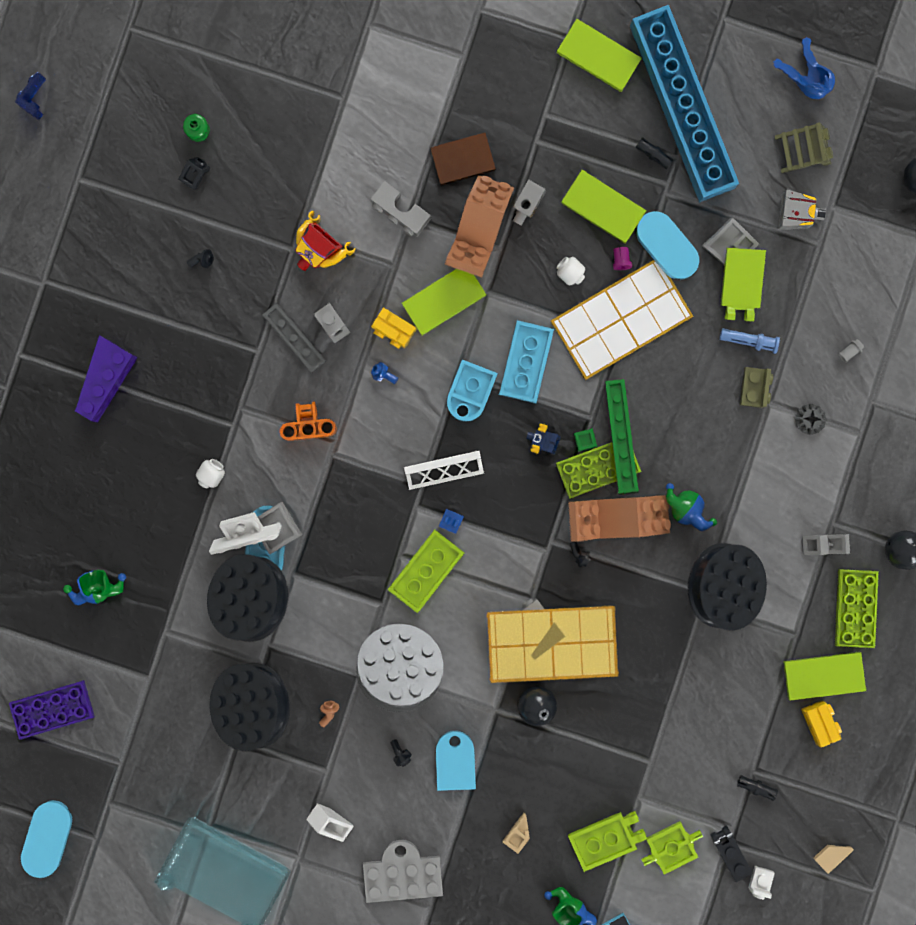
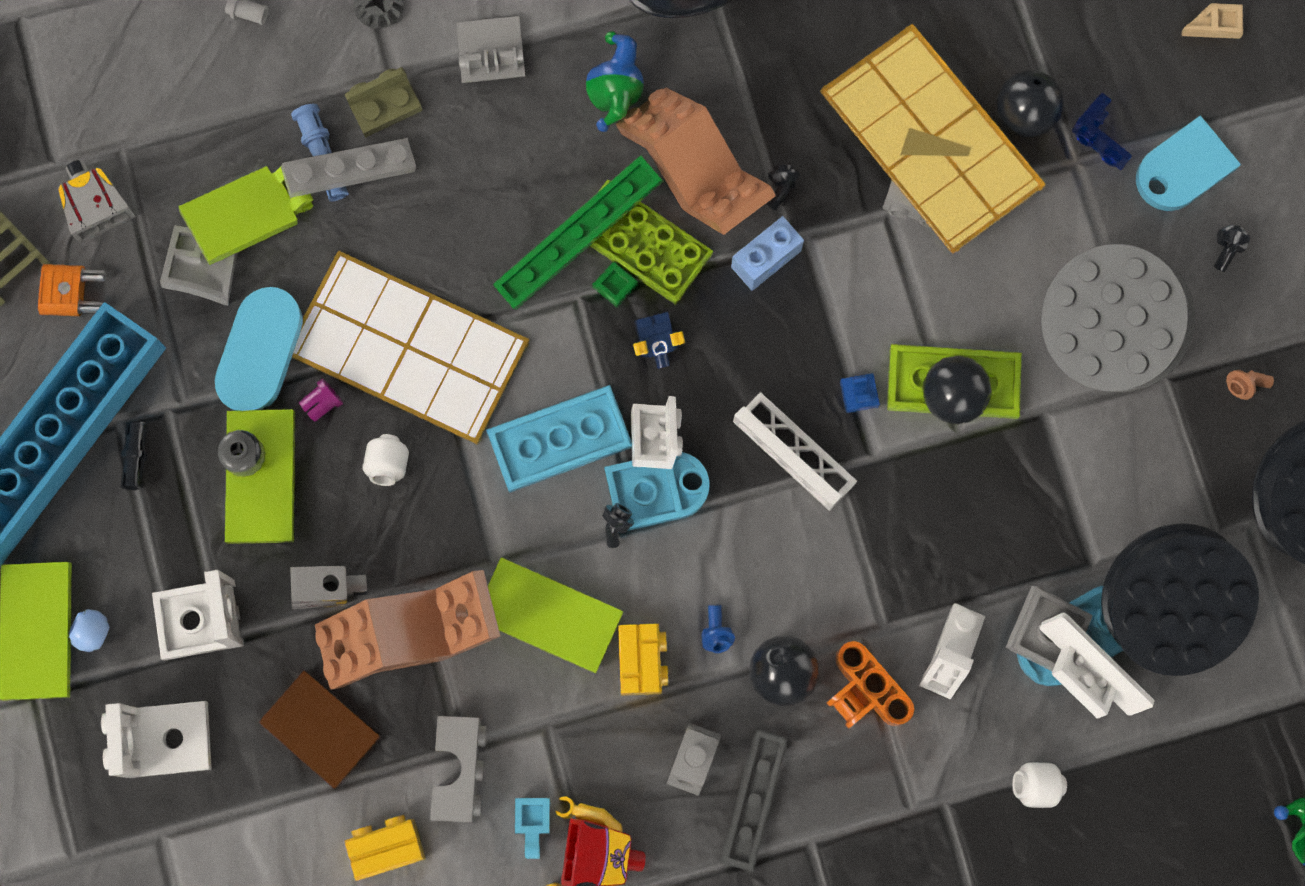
camera: 125 degrees left, 10 degrees down
(298, 478) = (954, 652): none -> white bracket
(342, 390) = (784, 670): none -> black piece
(353, 229) = (532, 819): none -> medium azure plate
(386, 153) = (384, 848): none -> yellow brick
(418, 564) = (957, 389): none -> black piece
(465, 361) = (618, 520): none -> black plate
(495, 406) = (655, 435): none -> white bracket
(510, 735) = (1089, 134): none -> clear blue bracket
(511, 70) = (139, 739): none -> white bracket
(548, 144) = (217, 613): none -> white bracket
(549, 523) = (767, 253): none -> light blue brick
(581, 80) = (89, 630): none -> light blue piece
(622, 204) = (250, 458): none -> dark grey head
(731, 347) = (348, 167): none -> light grey plate
(748, 459) = (490, 49): none -> light grey hinge
(762, 171) = (63, 290): none -> orange piece

